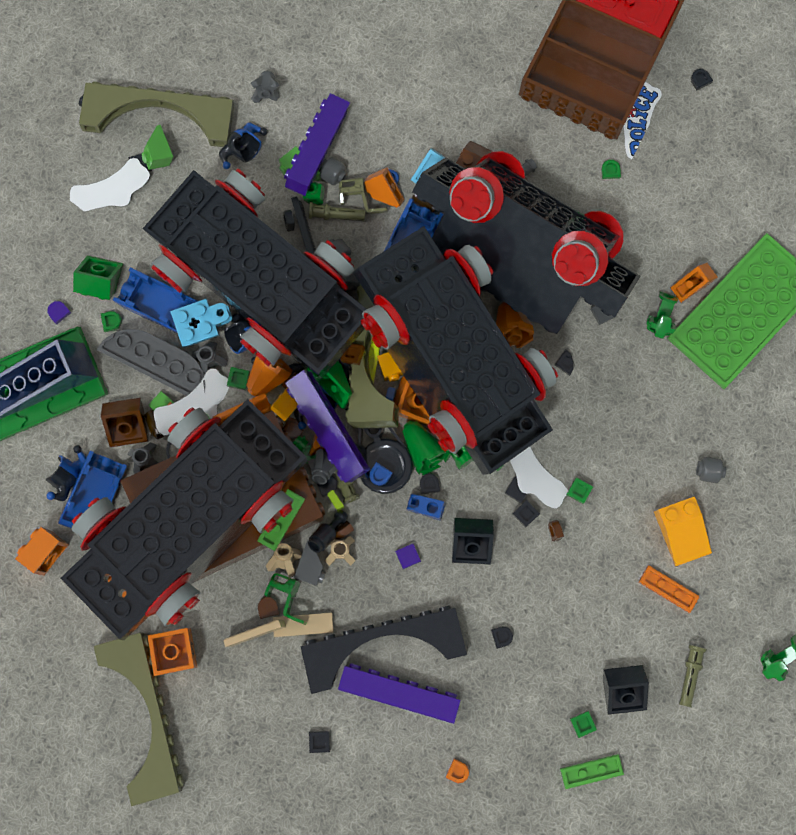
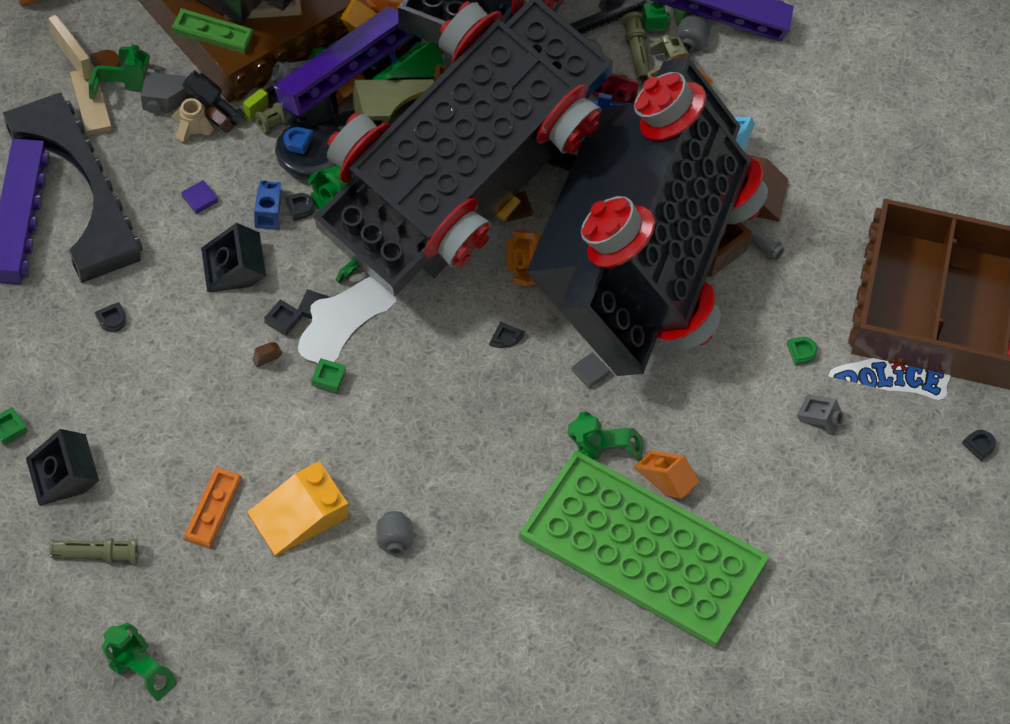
camera: 75 degrees right, 20 degrees down
(284, 558) = (170, 59): tan rock -> none
(373, 237) = (620, 87): none -> dark red hips
(663, 171) = (822, 412): none -> dark grey bracket

